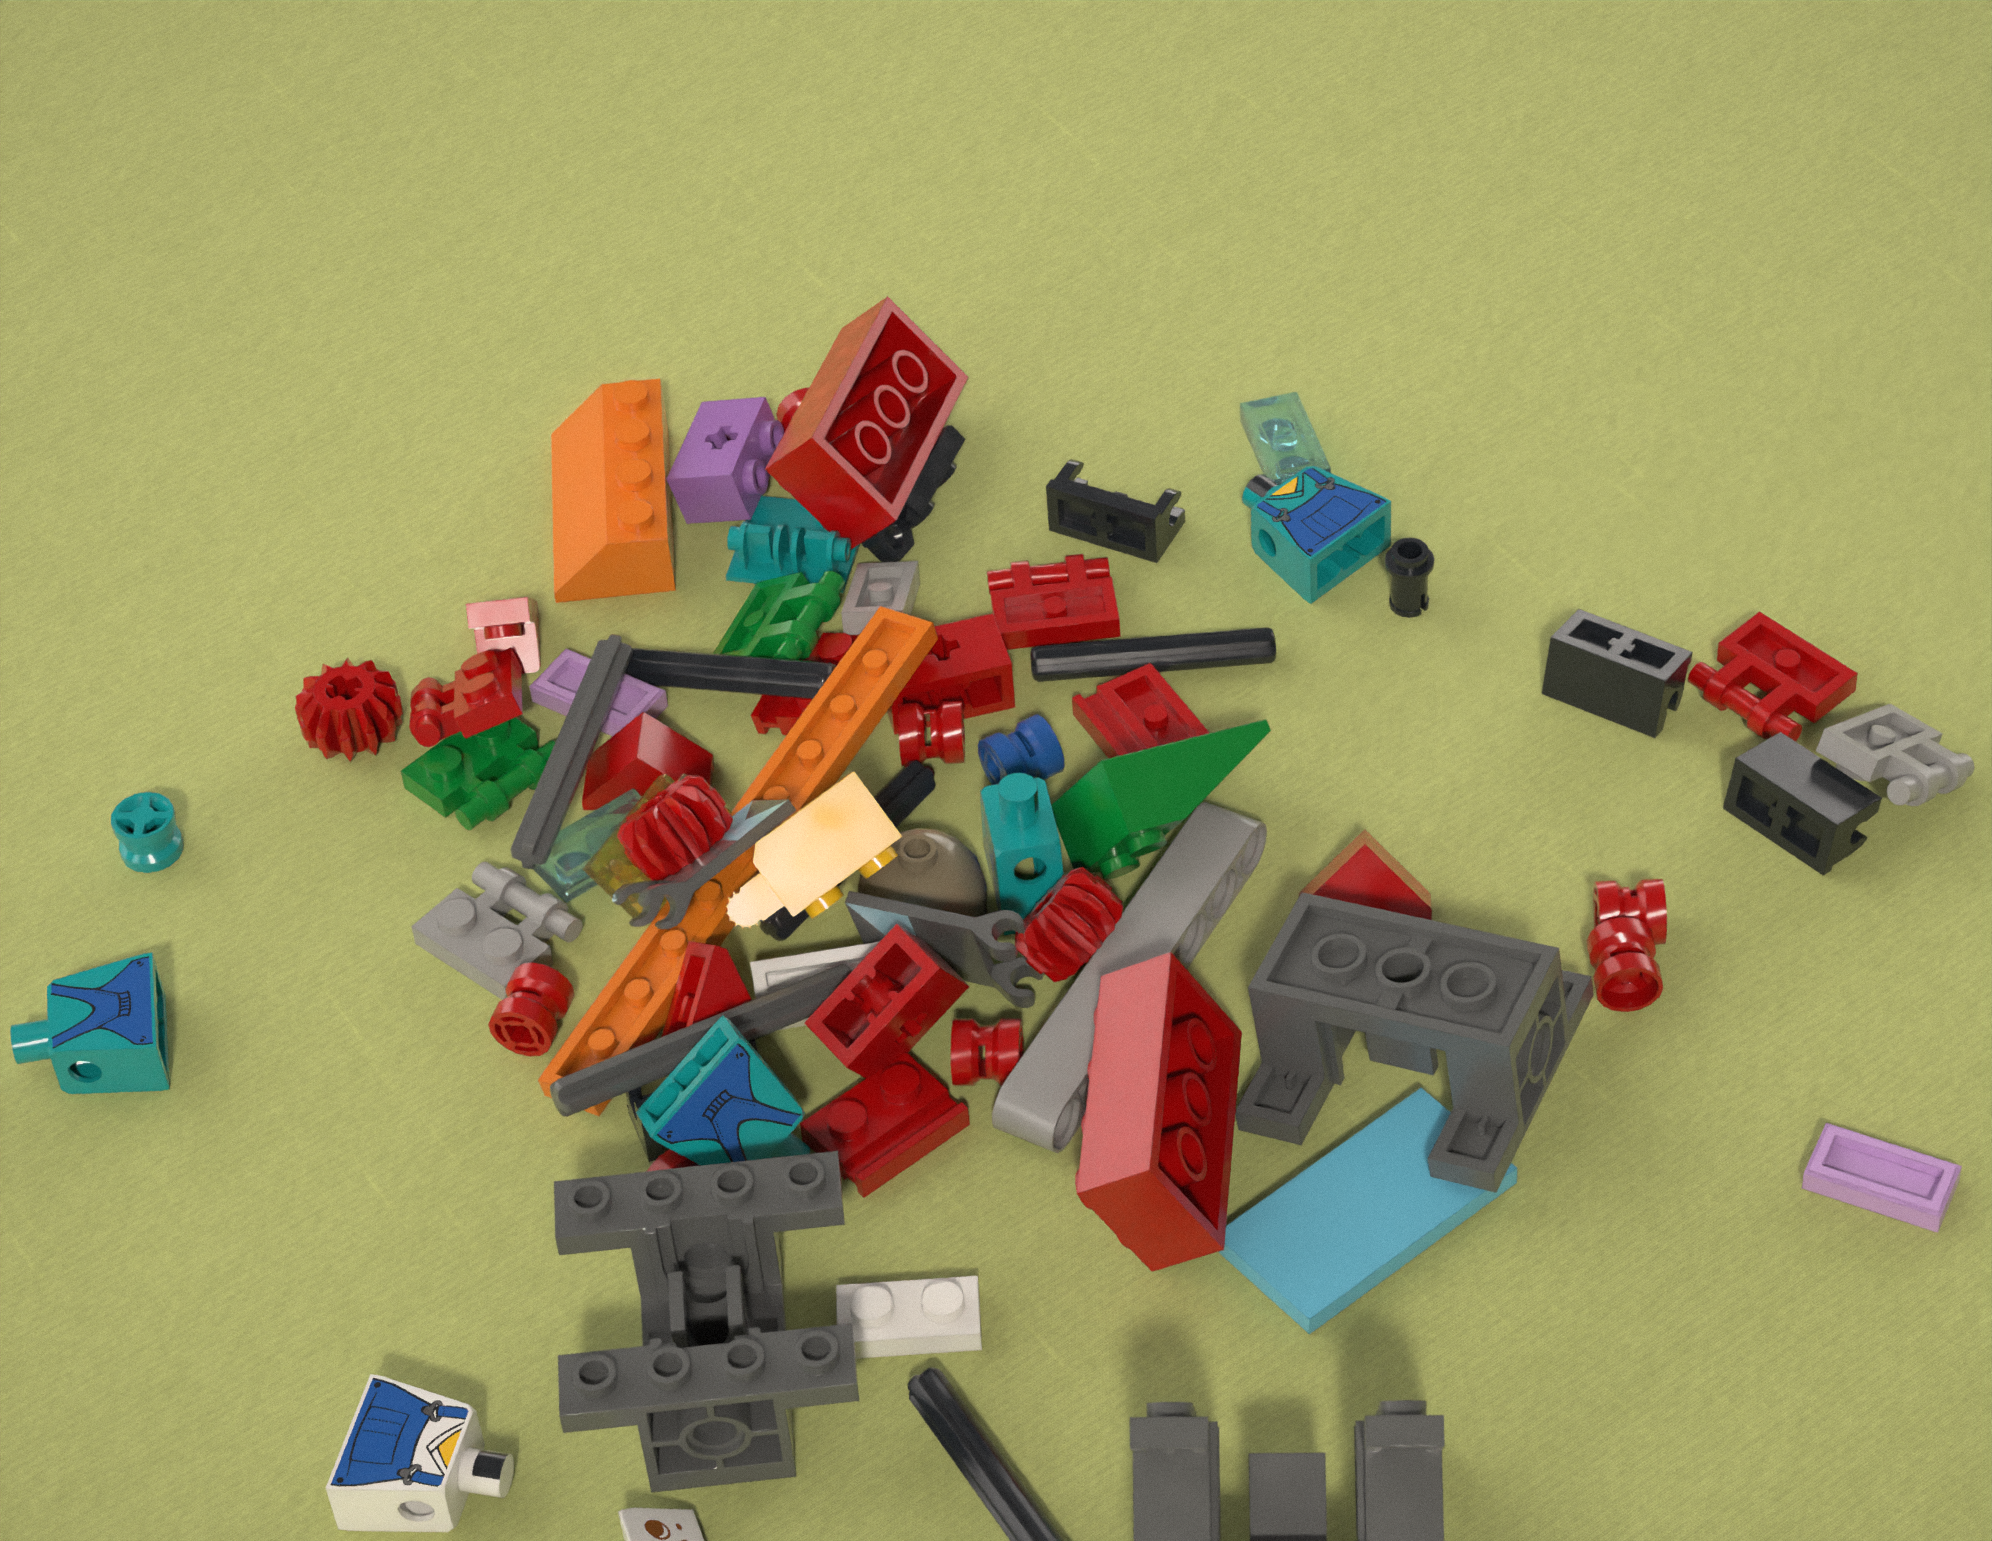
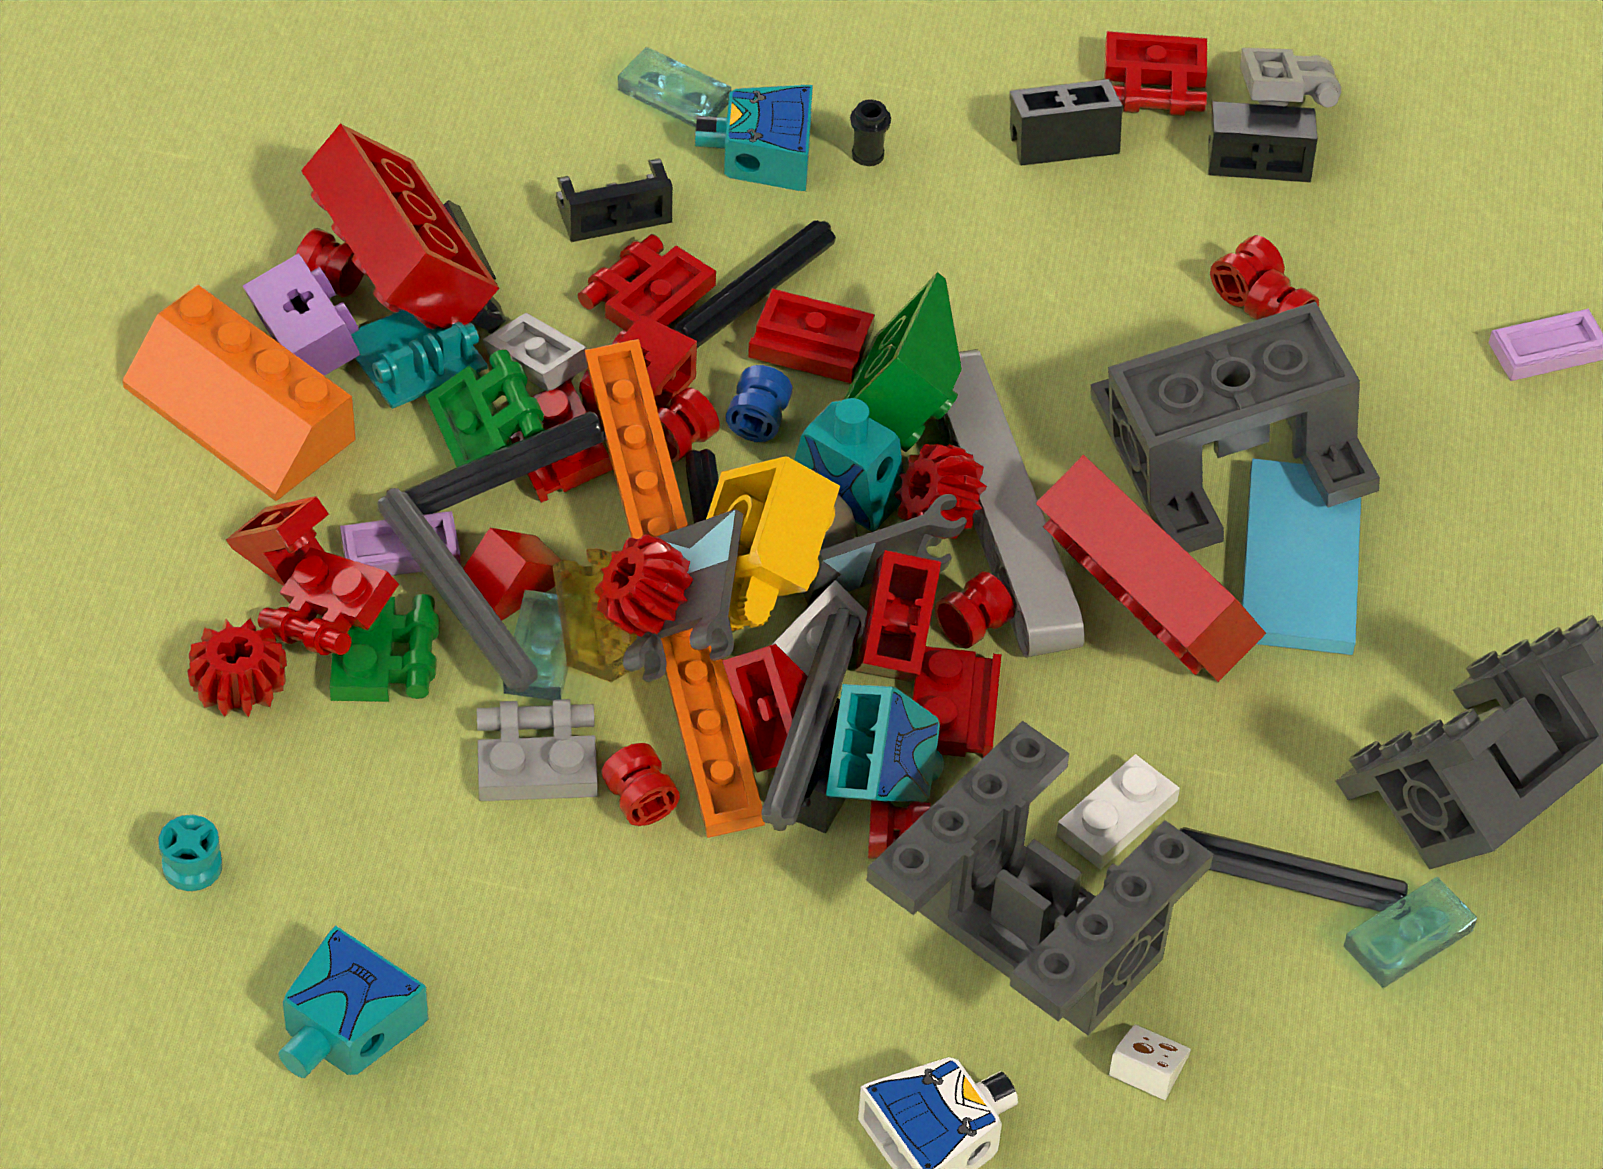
camera: 50 degrees left, 5 degrees up
(1371, 878) = (1077, 354): red slope -> none

